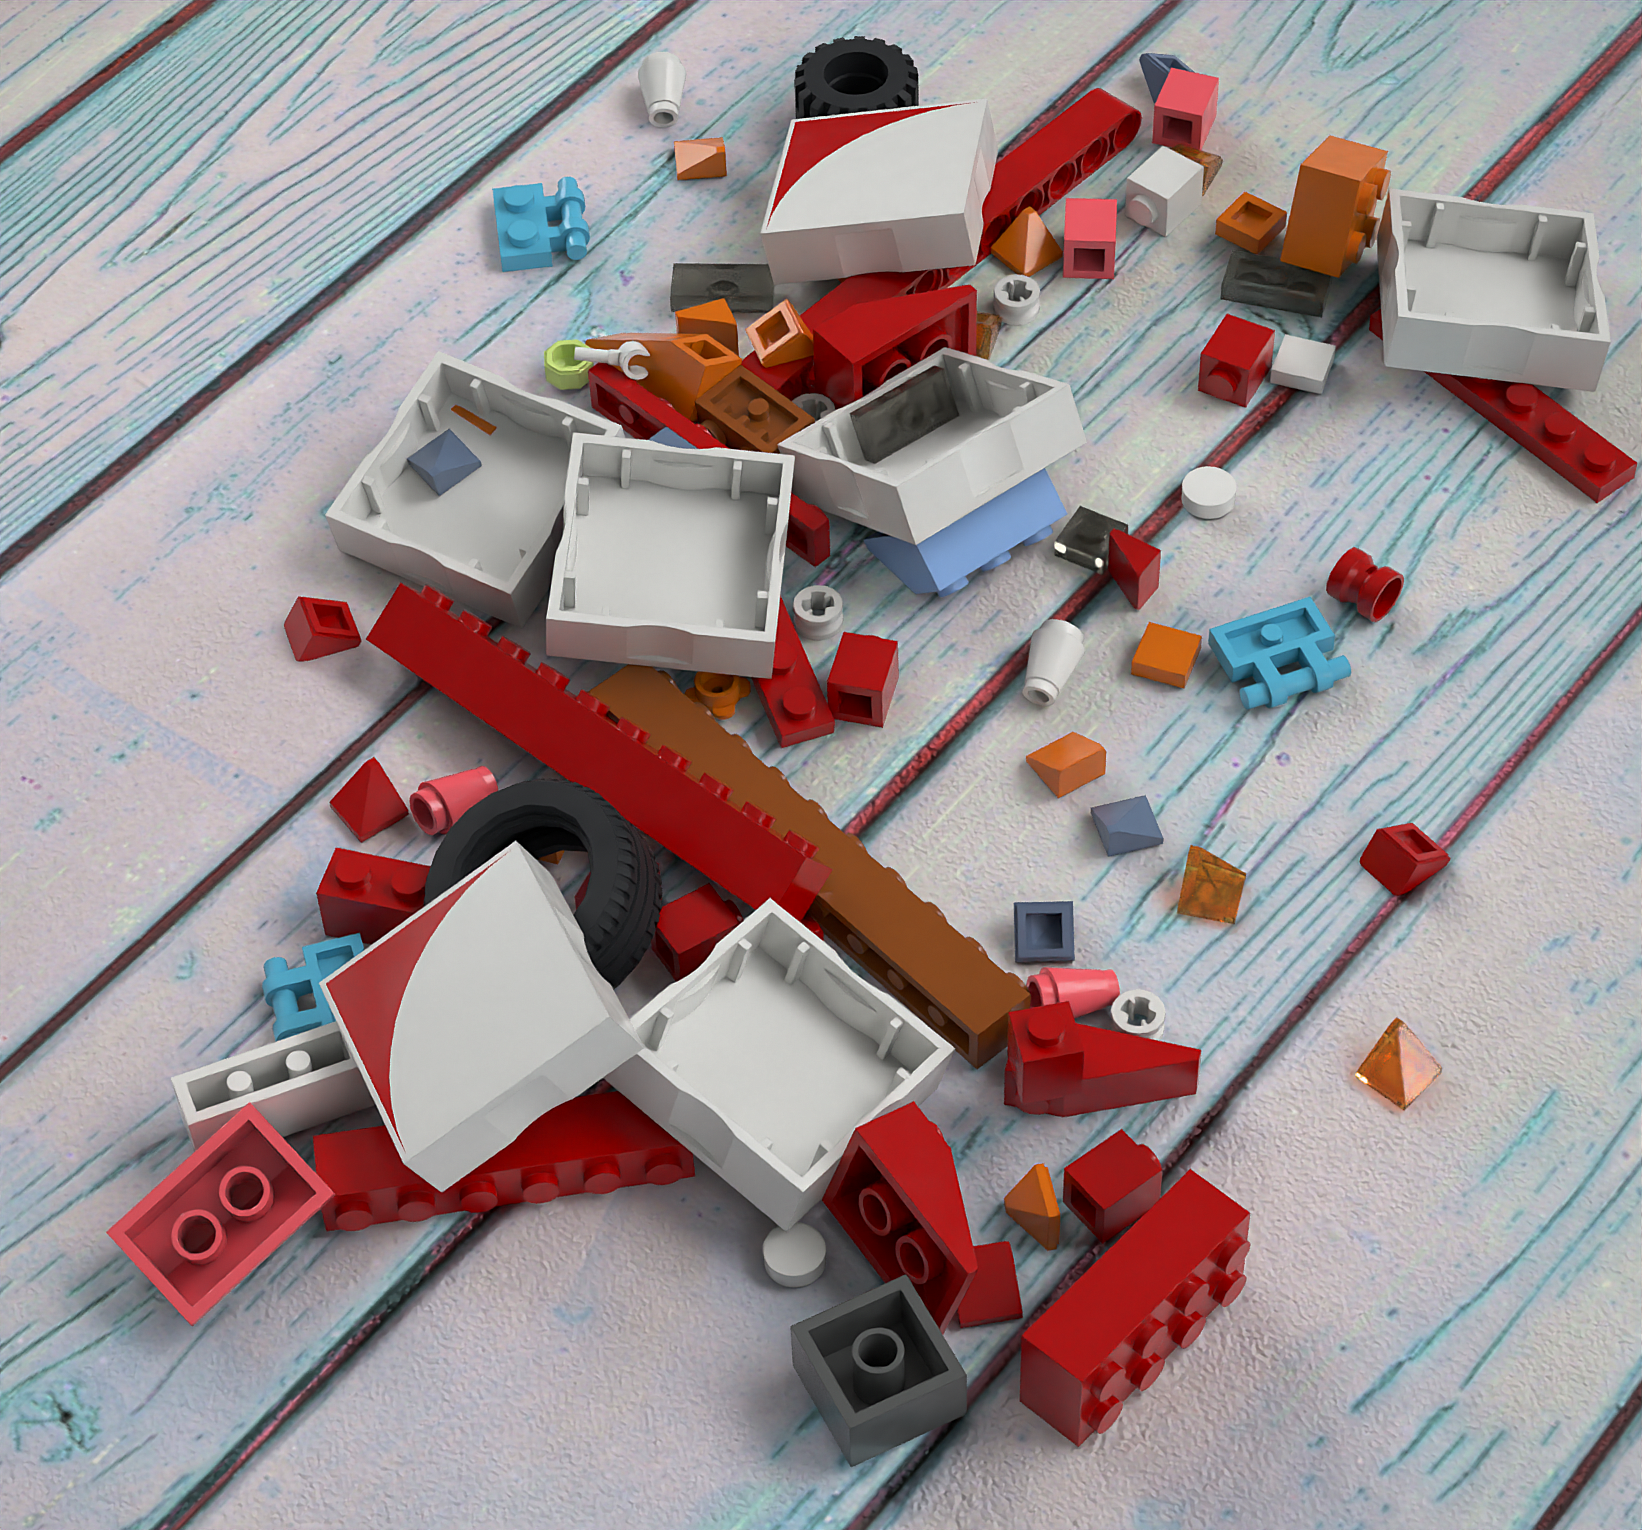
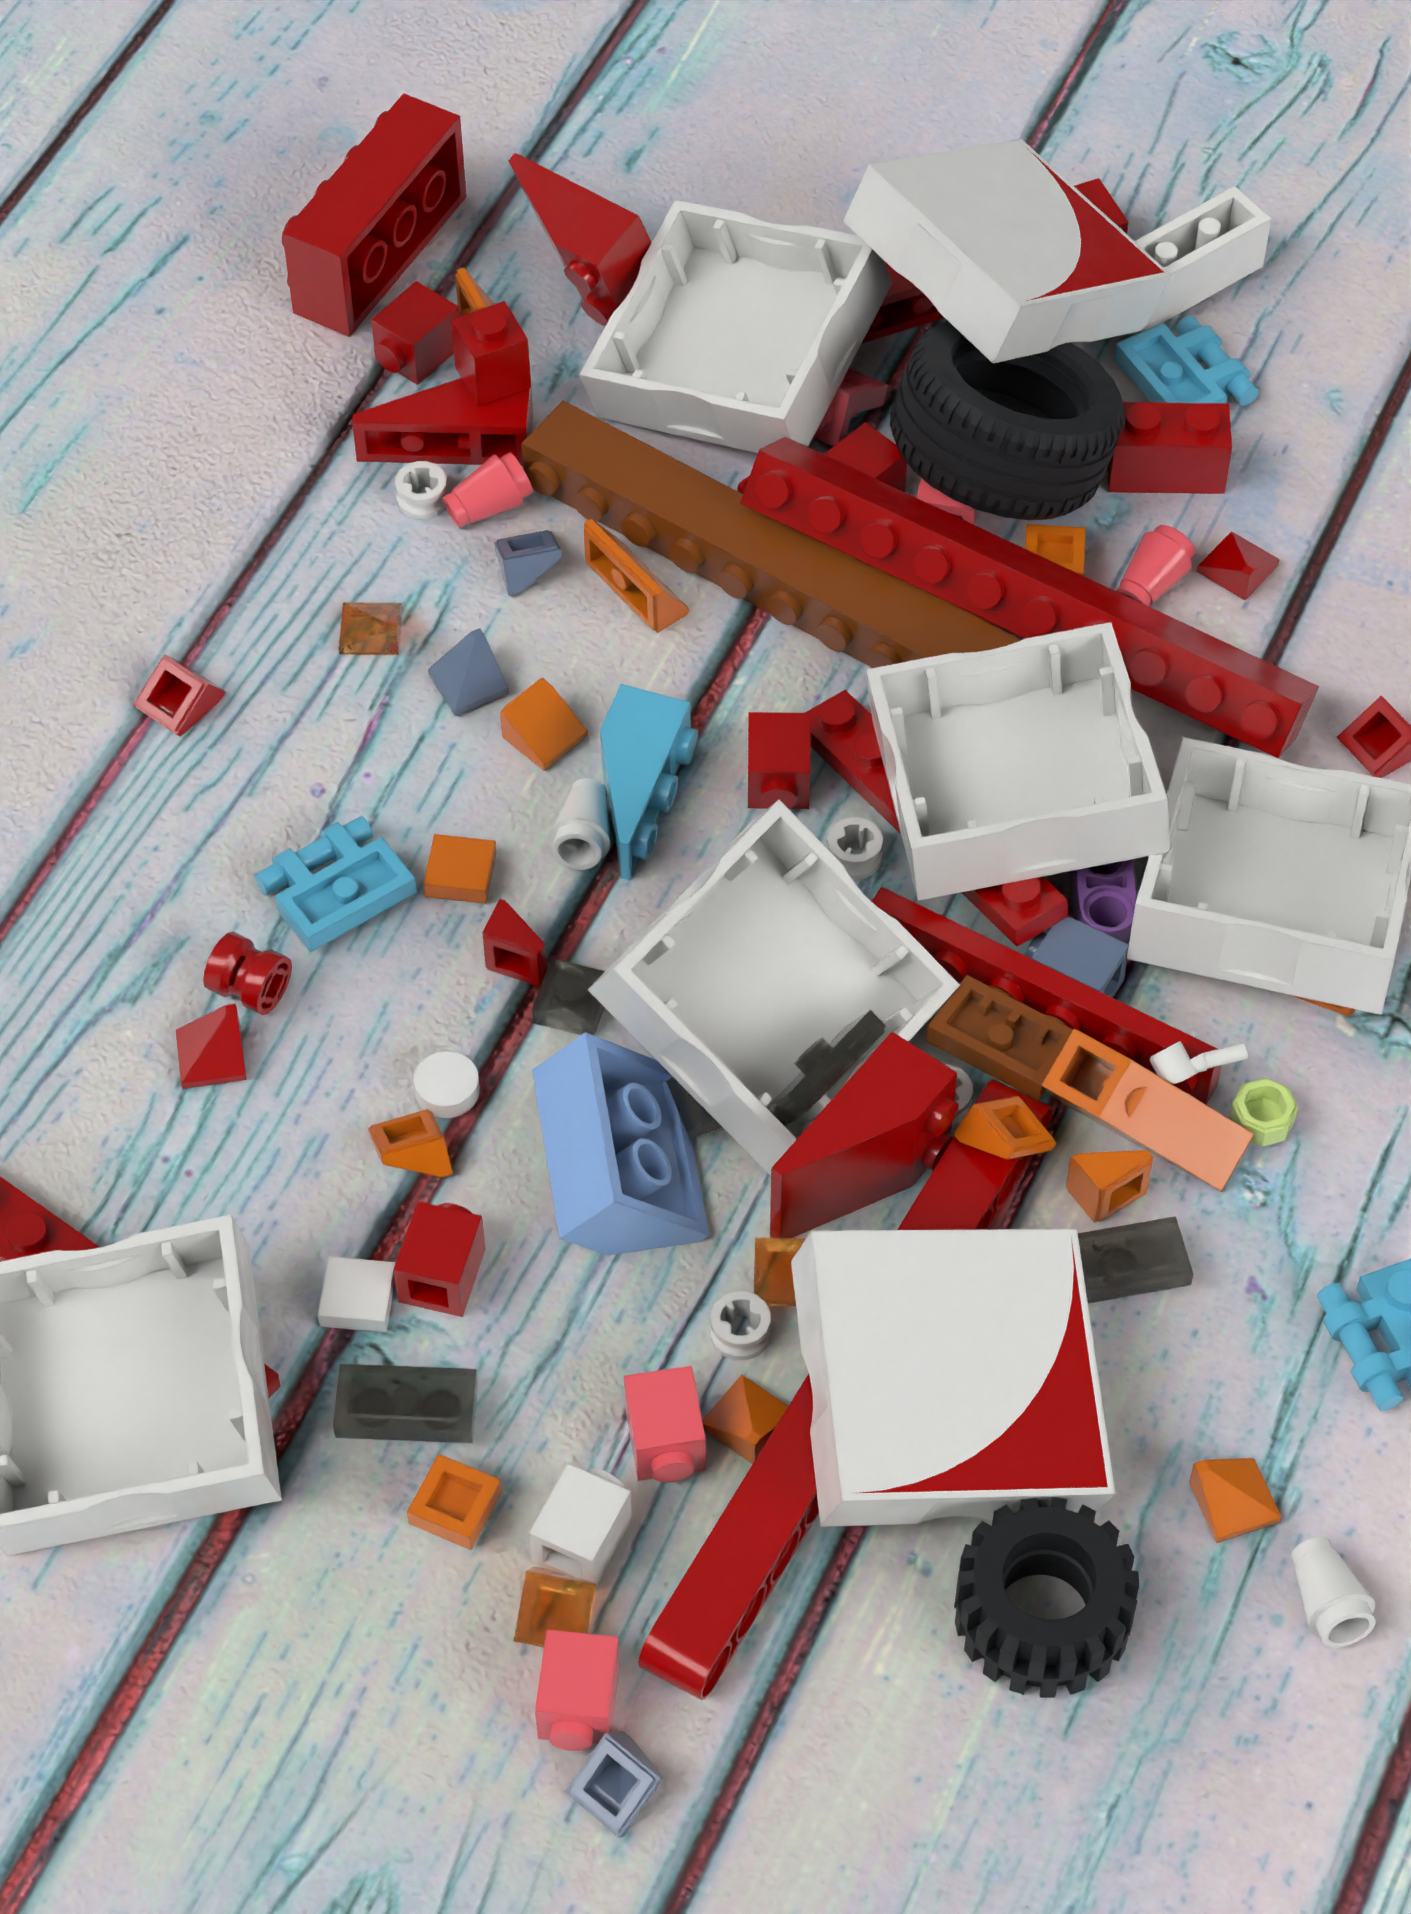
camera: 165 degrees right, 5 degrees up
(220, 1213) = (1176, 152): coral slope -> none
(444, 462) = (1339, 903): sand blue slope -> none
(879, 1370) = (587, 138): dark grey brick -> none
(945, 878) = (631, 578): none -> orange slope
(983, 706) = (640, 754): none -> medium azure slope
(994, 1290) = (514, 258): red slope -> none
(1106, 387) = (617, 1150): none -> light blue slope
(1247, 454) = (412, 1144): none -> orange slope
(1335, 206) = (334, 1461): orange brick -> none
(1399, 1065) = (169, 495): clear orange slope -> none
(1403, 550) = (211, 1049): none -> red slope

